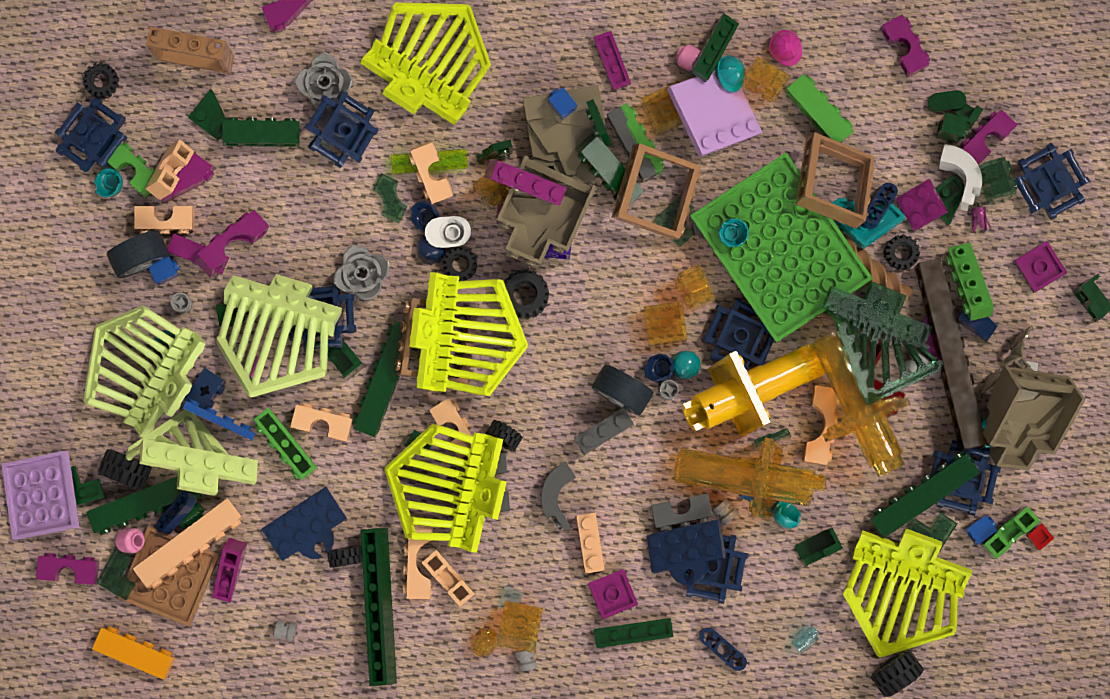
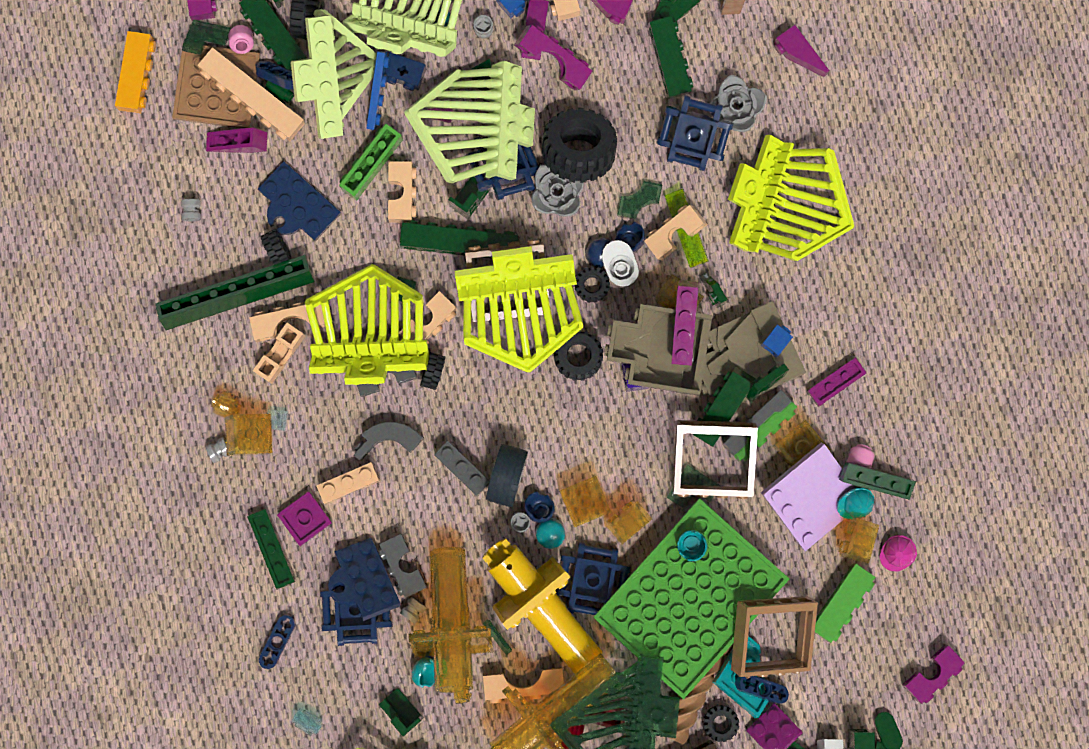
camera: 75 degrees right, 0 degrees up
(306, 231) = (579, 126): none -> black tyre

